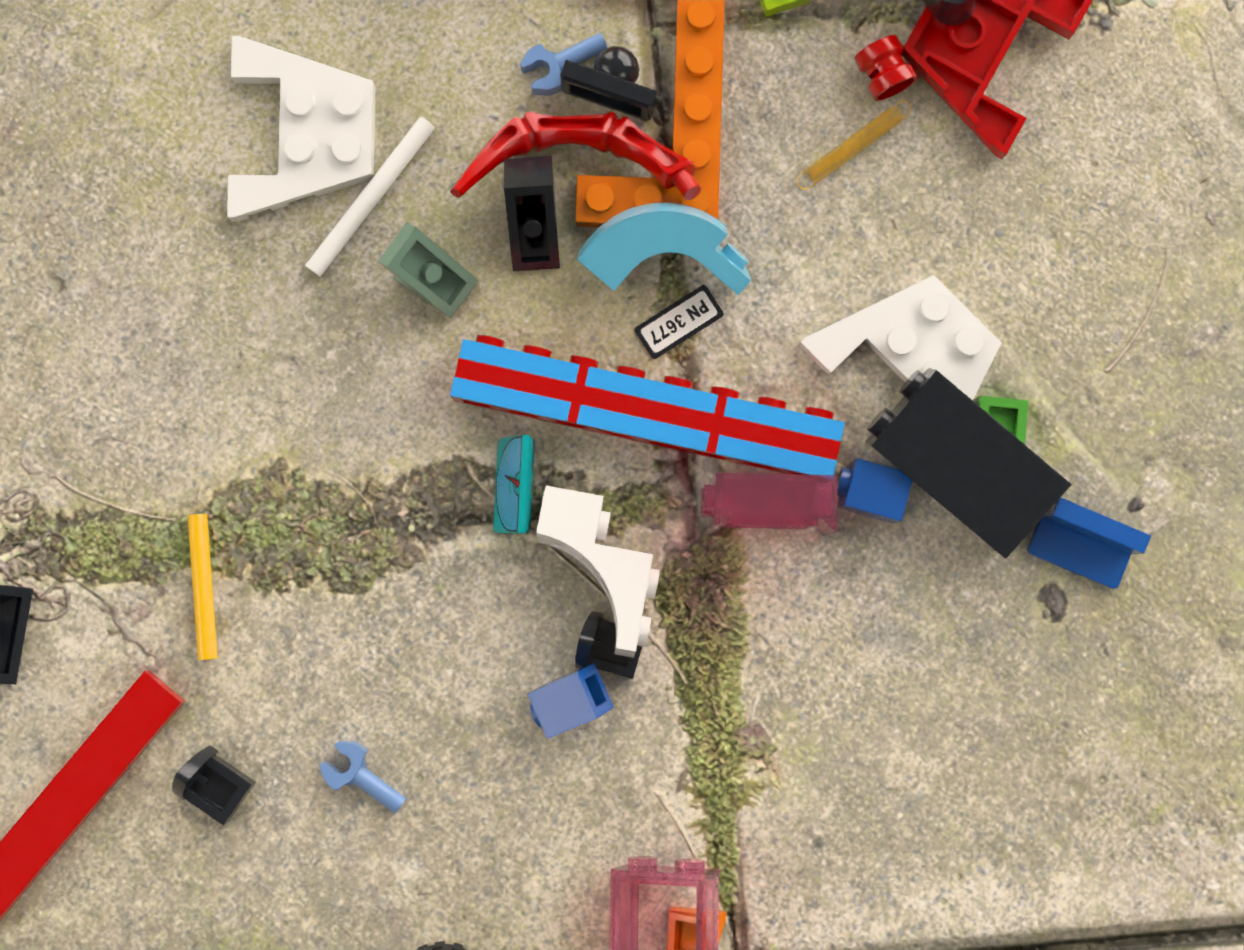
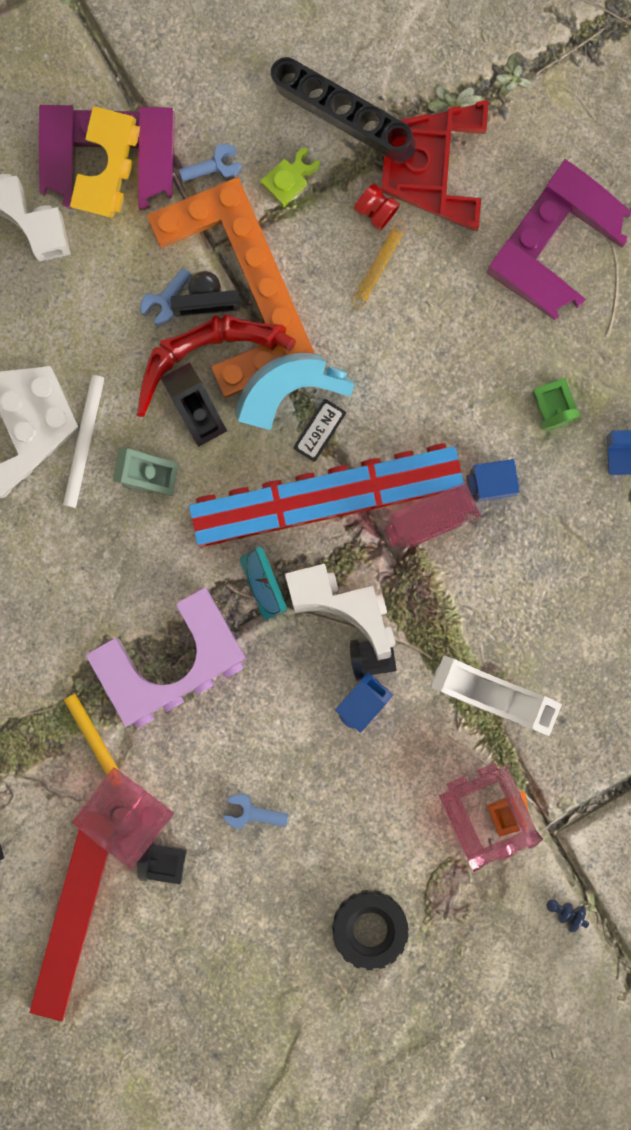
camera: 20 degrees left, 0 degrees up
(186, 705) = (122, 818): none -> clear pink slope
(282, 557) = (137, 697): none -> lavender arch
(746, 774) = (496, 695): none -> white arch
(912, 333) = (488, 372): white wing -> none
(966, 460) = (542, 435): black panel -> none
(1139, 162) = (566, 192): none -> magenta wedge

